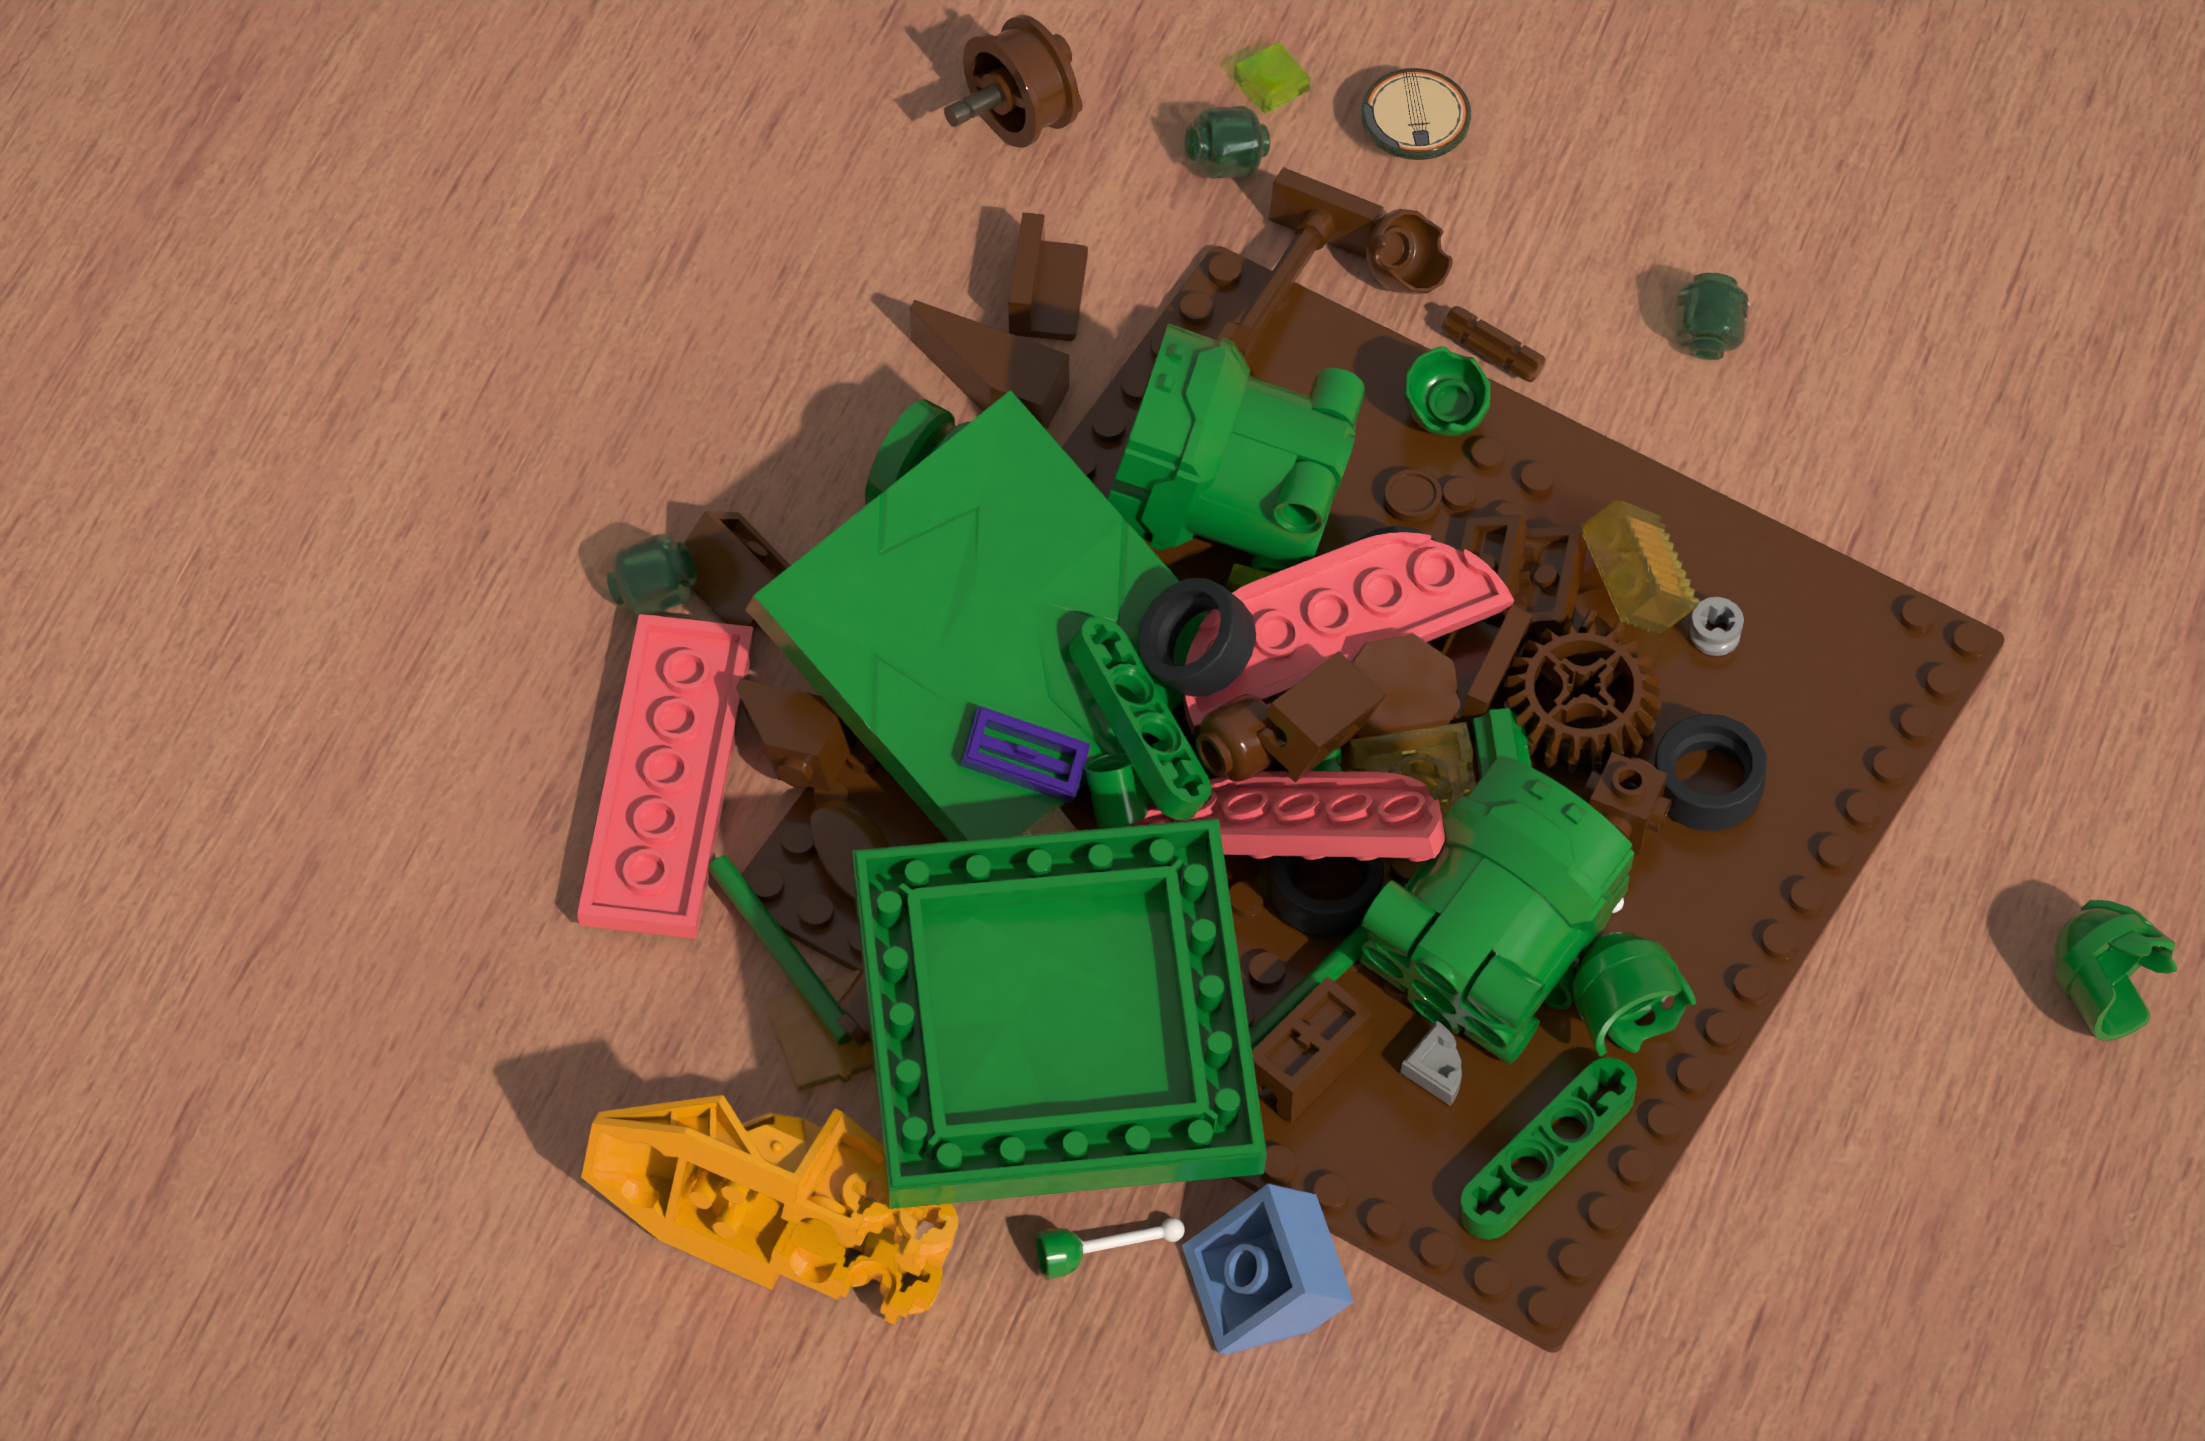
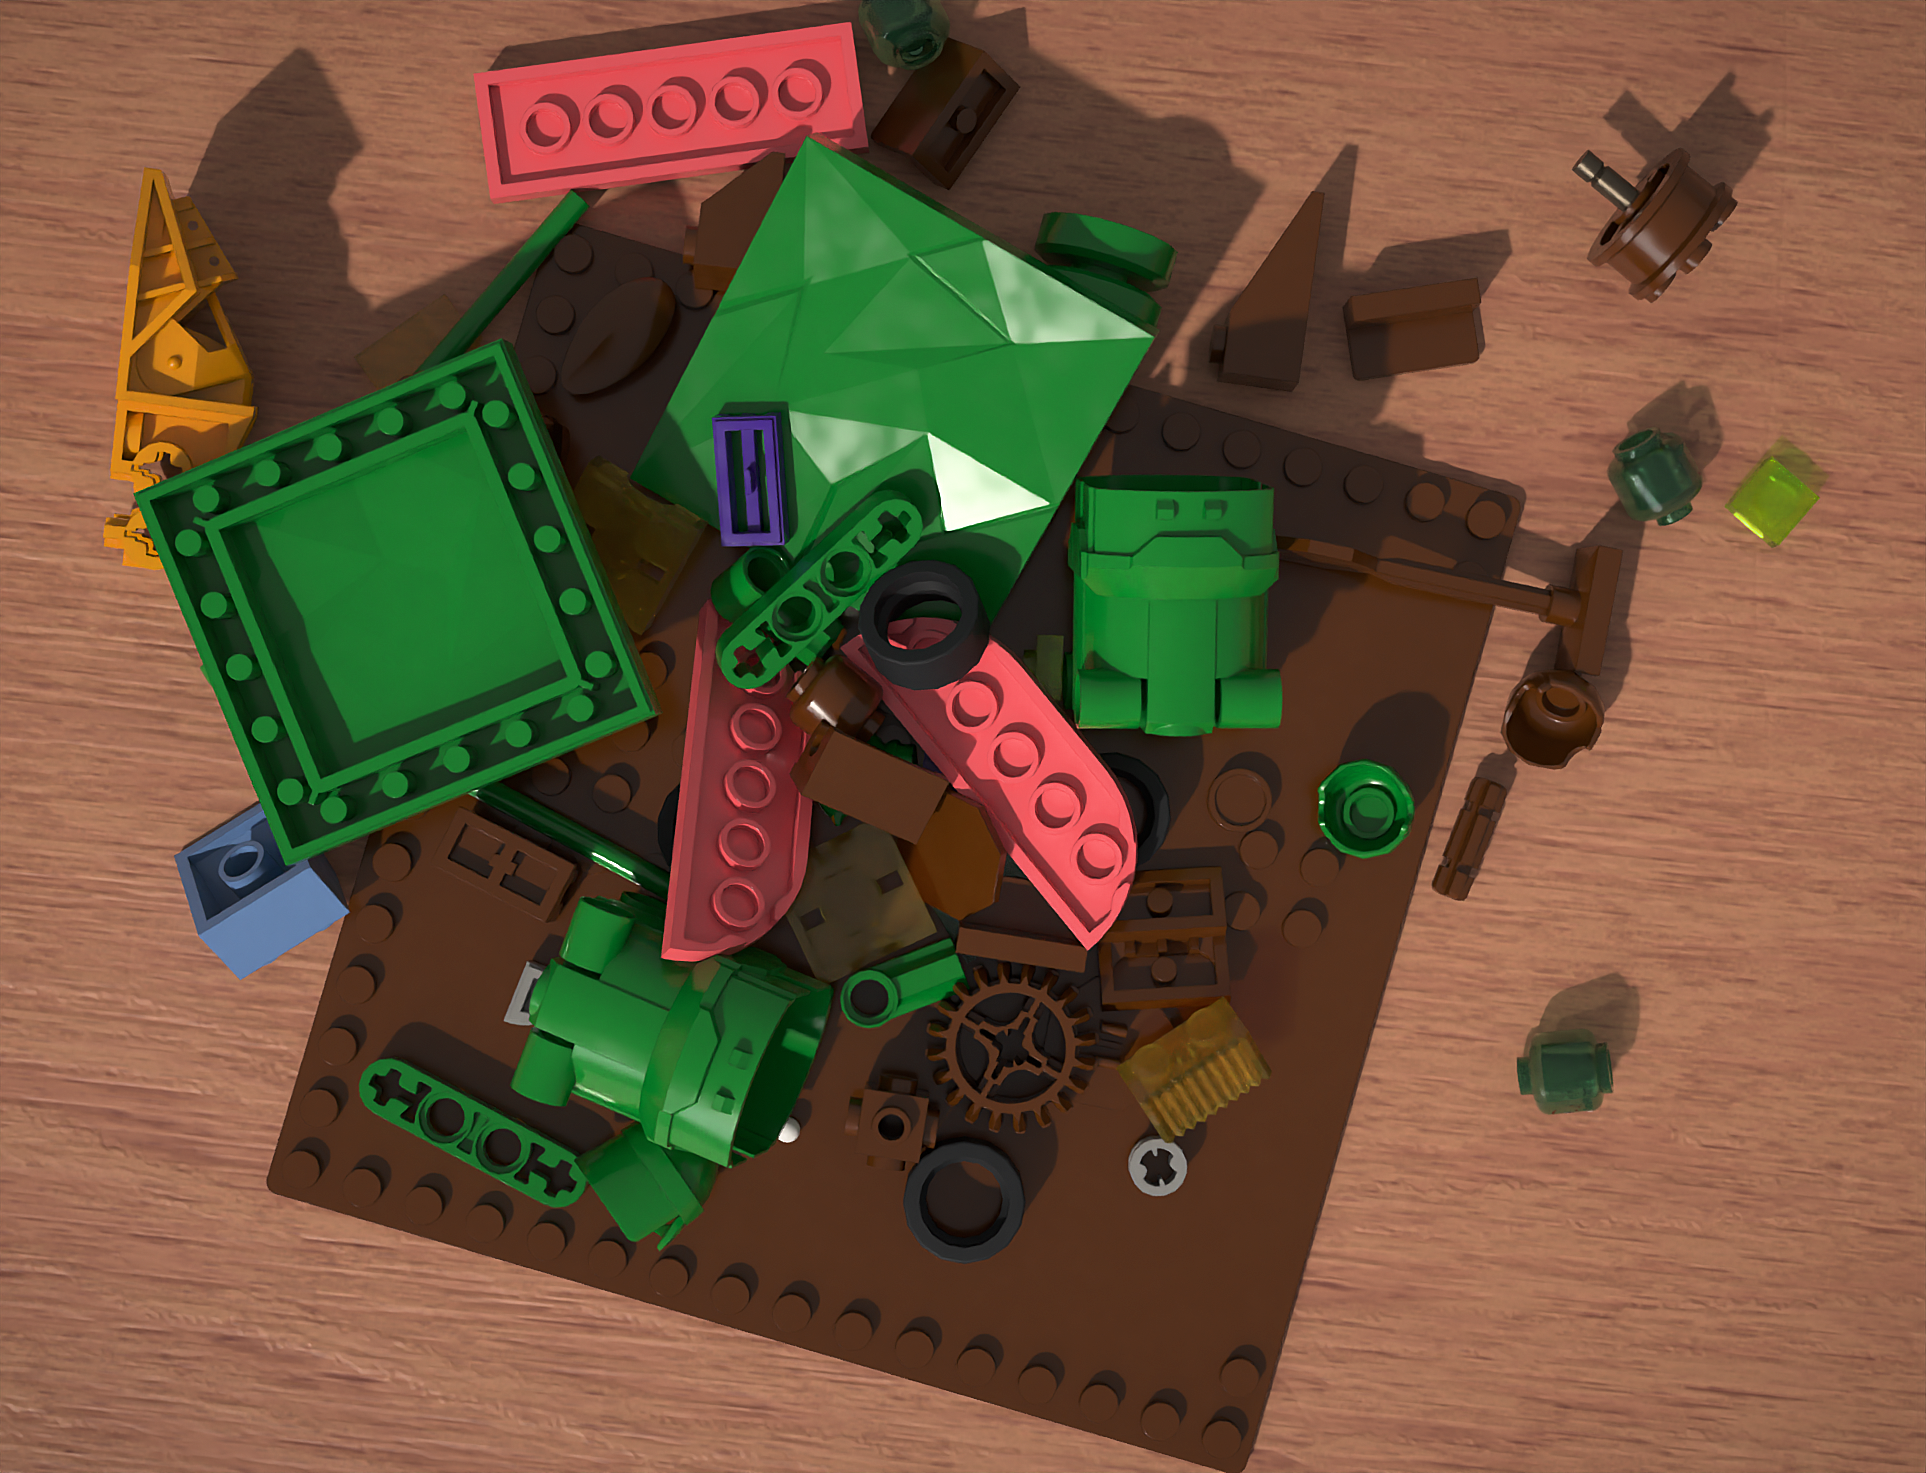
camera: 70 degrees right, 30 degrees up
(1416, 114) = (1754, 678): piece -> none

